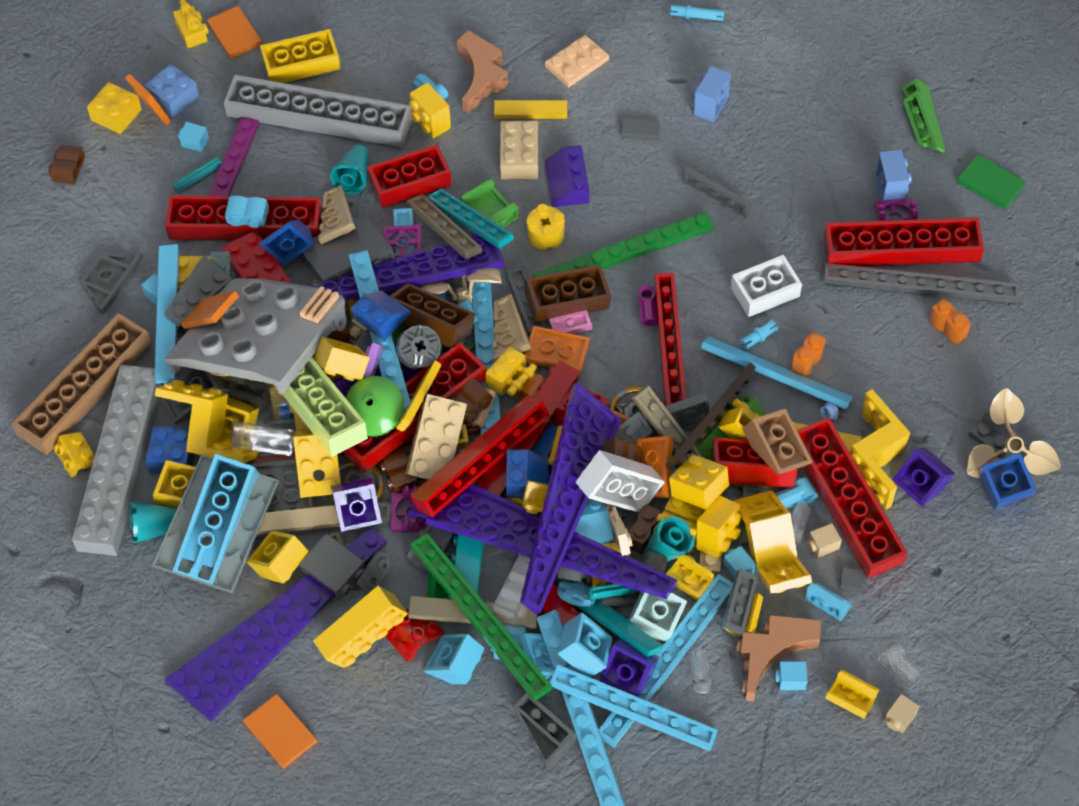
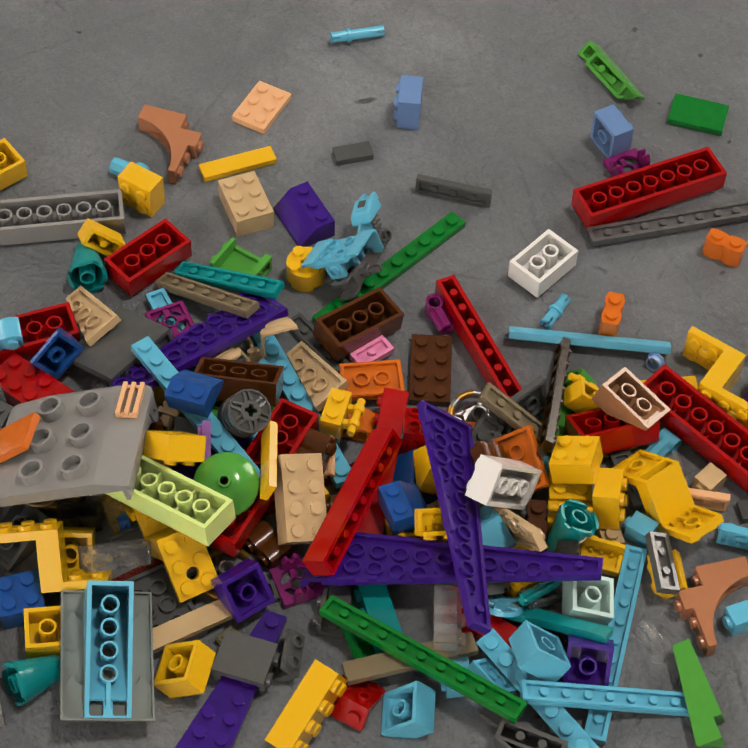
camera: 25 degrees left, 5 degrees down
(373, 146) = (100, 237): none -> yellow brick
(588, 230) = (353, 258): none -> medium azure piece
(617, 356) = (430, 369): none -> reddish brown plate
(718, 735) = (699, 698): none -> bright green wedge
(815, 557) = (710, 499): none -> light nougat tile

